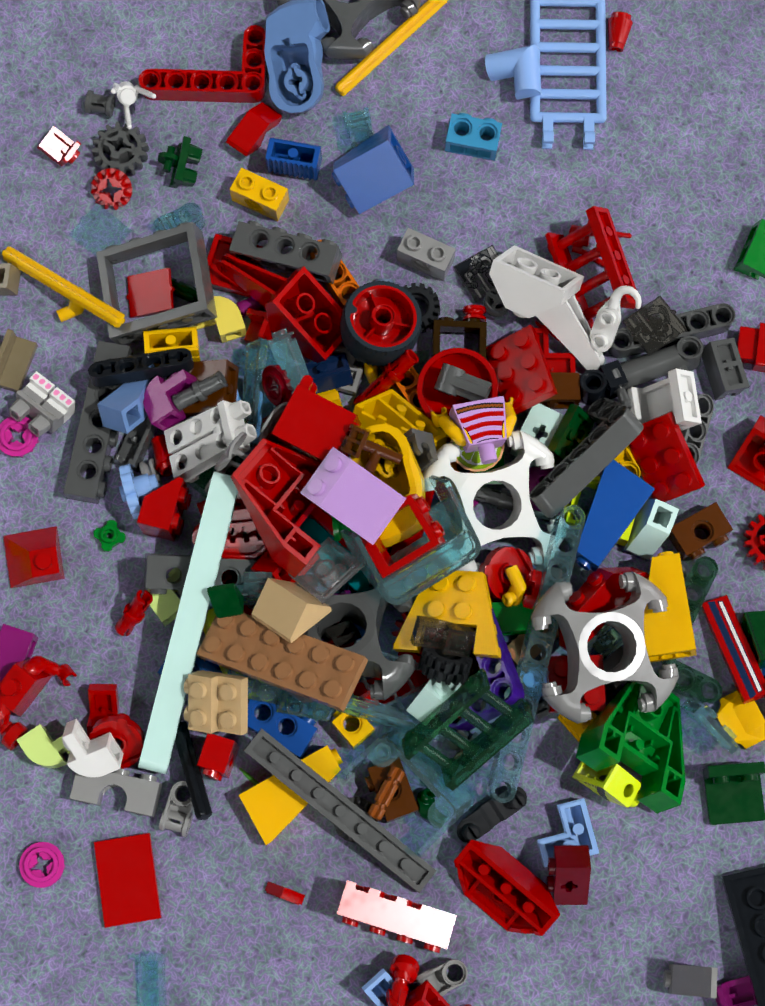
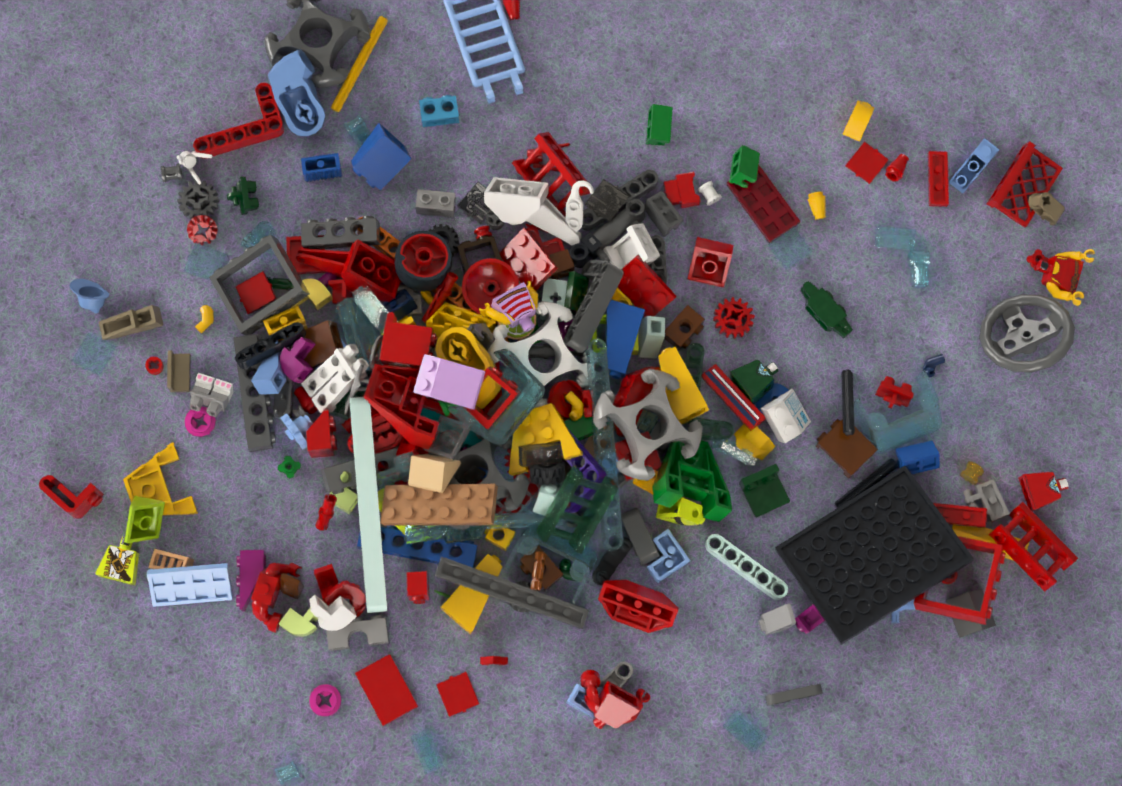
camera: 25 degrees left, 0 degrees up
(33, 557) = (242, 499): red slope -> none
(52, 695) = (291, 586): none -> reddish brown slope
(59, 147) = (155, 212): bracket -> none
(63, 287) = (195, 308): yellow axle -> none
(178, 811) = (404, 631): light grey piece -> none
(192, 773) = (404, 603): black axle -> none
(199, 390) = (317, 347): dark grey pin -> none
(216, 702) = (405, 550): tan plate -> none
(220, 920) = (457, 694): none -> red piece
(226, 600) = (388, 480): dark green slope -> none
(252, 128) = (285, 155): red slope -> none
(259, 194) = (306, 199): yellow brick -> none
(272, 376) = (363, 321): dark red gear -> none
(376, 451) = (452, 346): reddish brown arm -> none
(396, 915) = (572, 648): wedge -> none
(457, 382) = (490, 283): dark grey piece -> none
(518, 63) = (455, 51): light blue brick -> none
(540, 794) = (640, 537): none -> dark grey beam
(570, 874) = (676, 581): dark red brick -> none
(686, 895) = (756, 568): none -> light aqua beam

